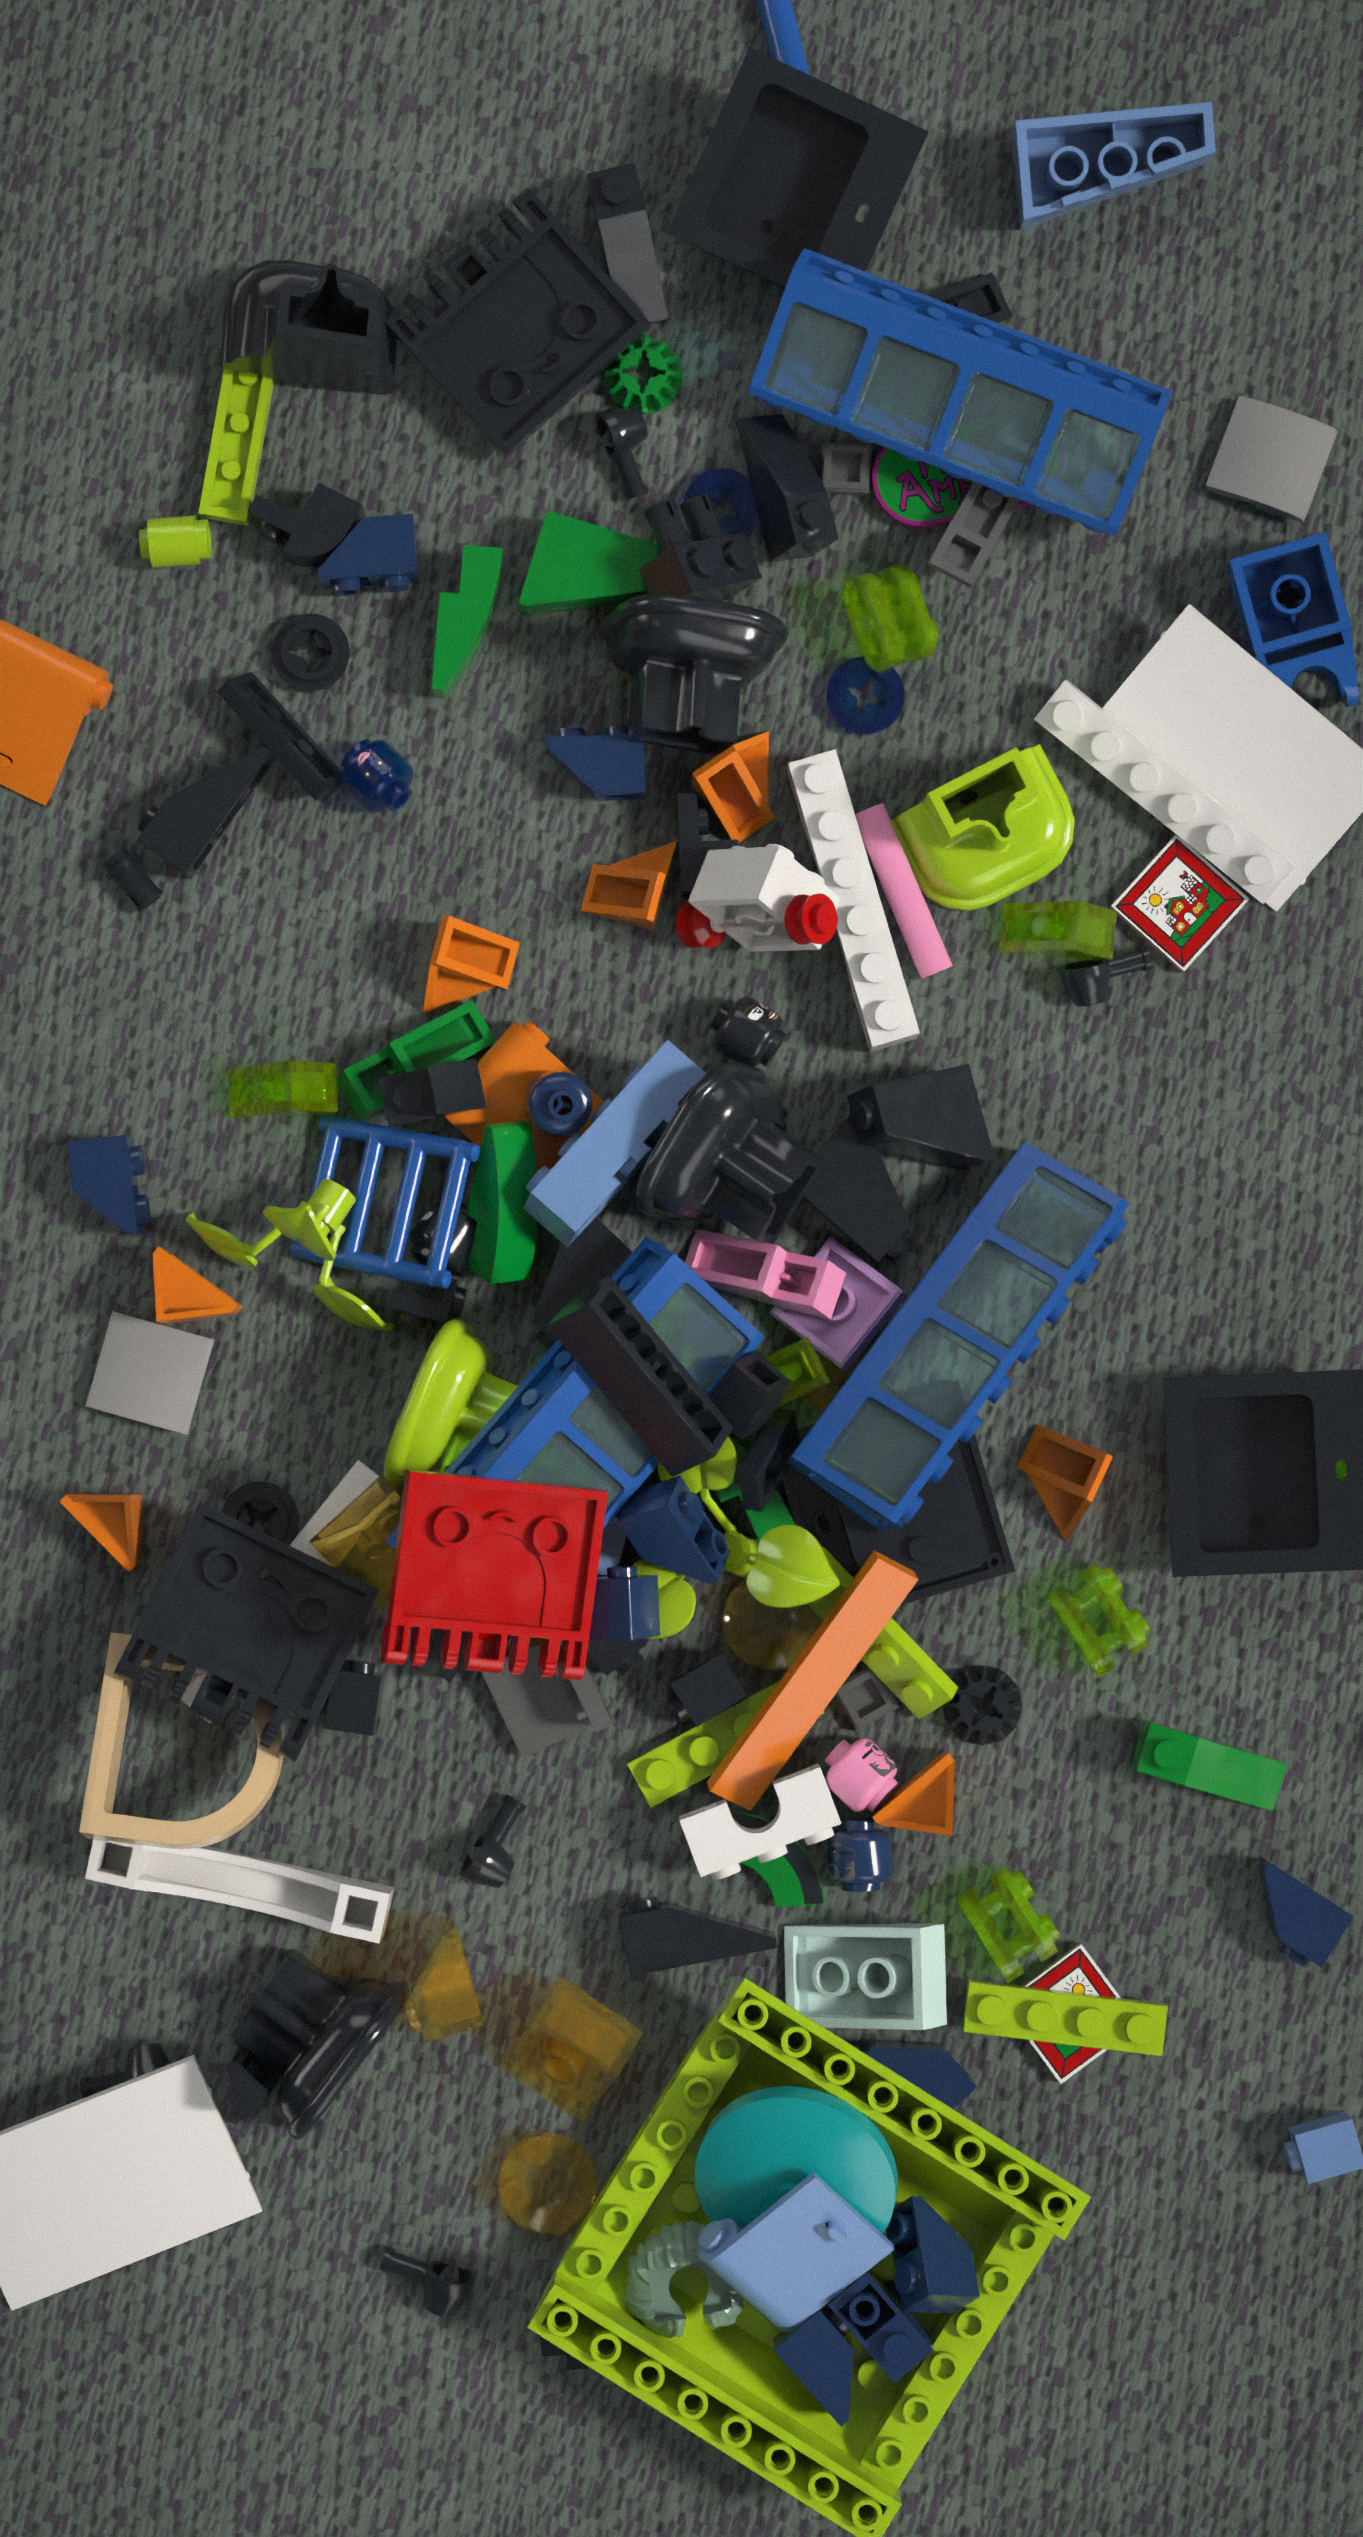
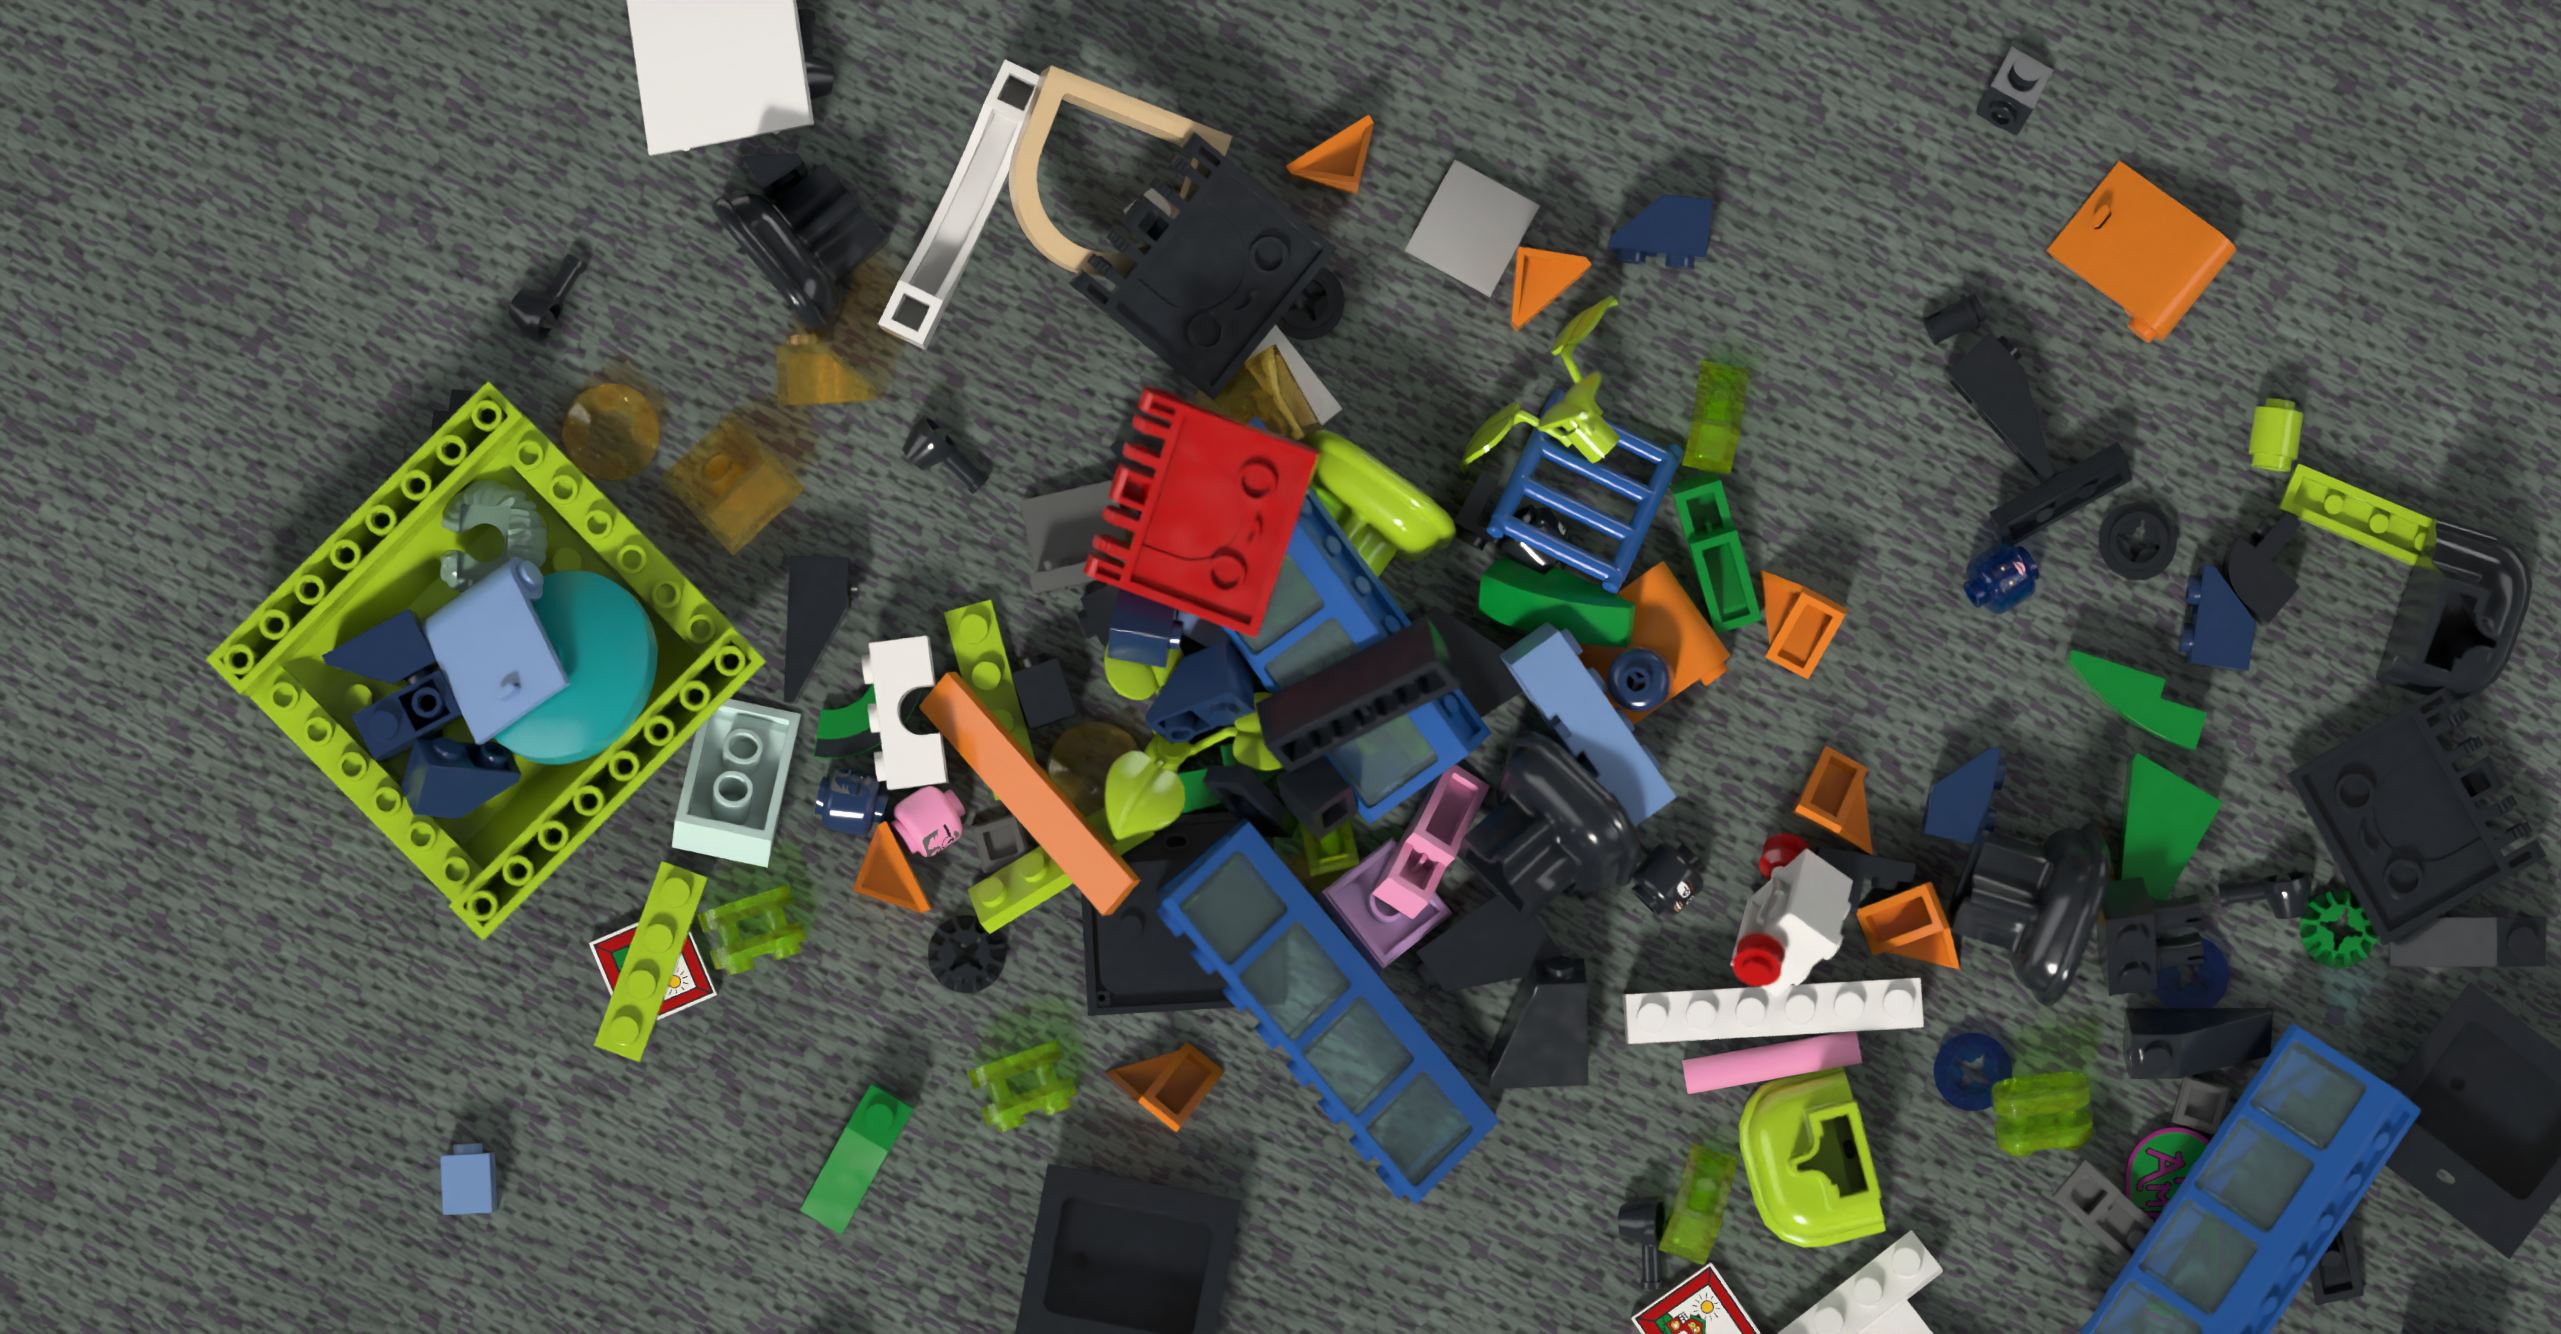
camera: 105 degrees right, 0 degrees up
(355, 1699) = (1114, 354): black brick -> none
(432, 1092) = (1678, 560): black slope -> none
(925, 2066) = (636, 818): dark blue slope -> none
(1301, 1916) = (693, 1211): dark blue slope -> none

